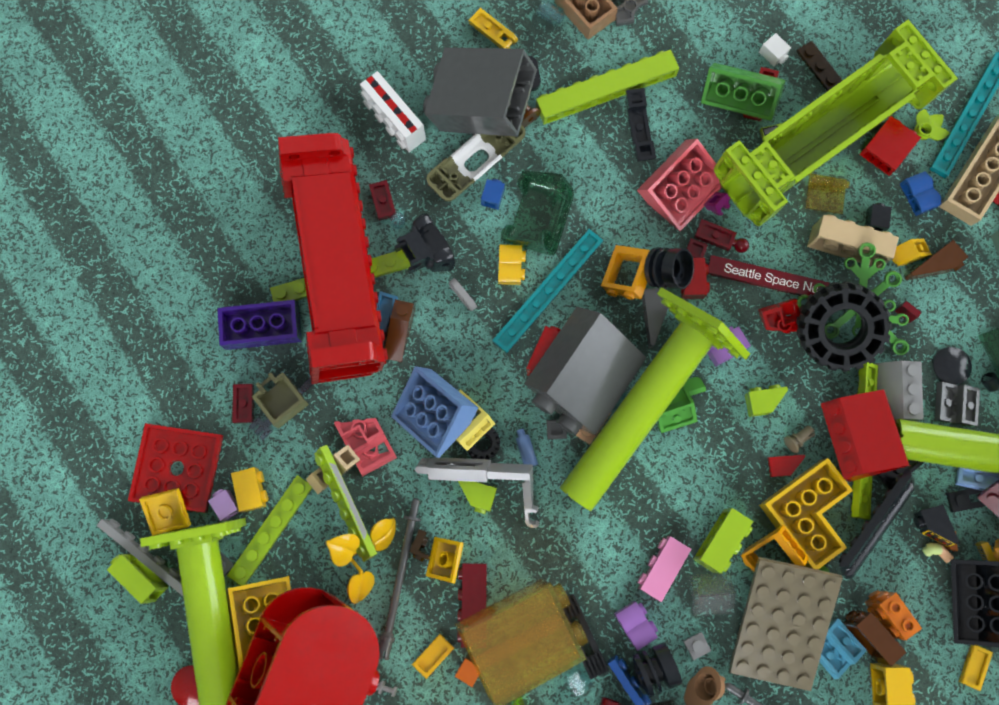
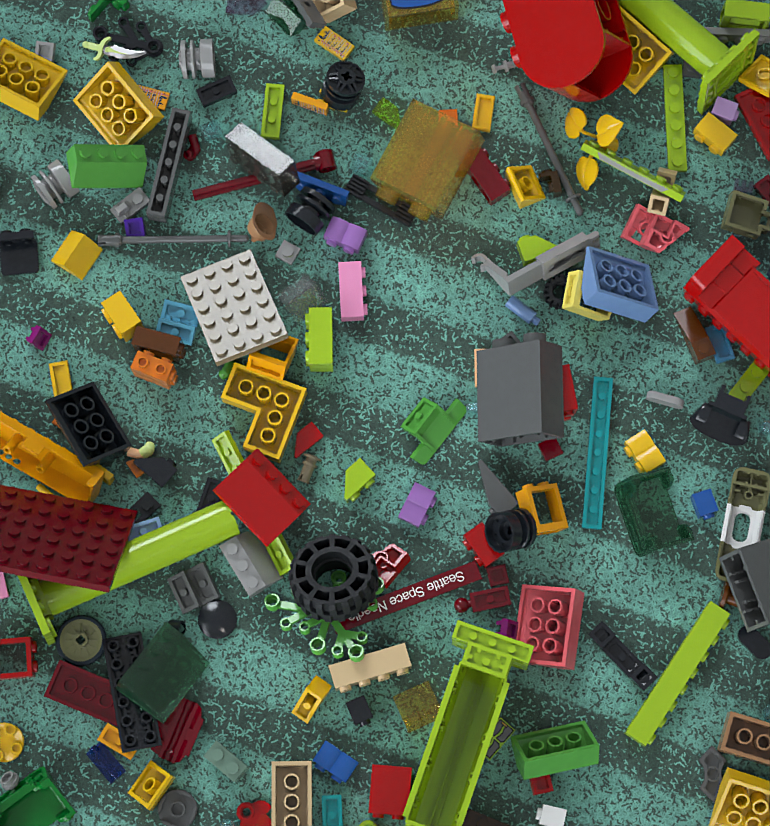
camera: 145 degrees right, 0 degrees up
(649, 398) = (452, 480): lime piece -> none
(877, 526) = (204, 436): black plate -> none
(909, 310) = (283, 640): dark red tile -> none
(946, 259) = (280, 707): reddish brown slope -> none

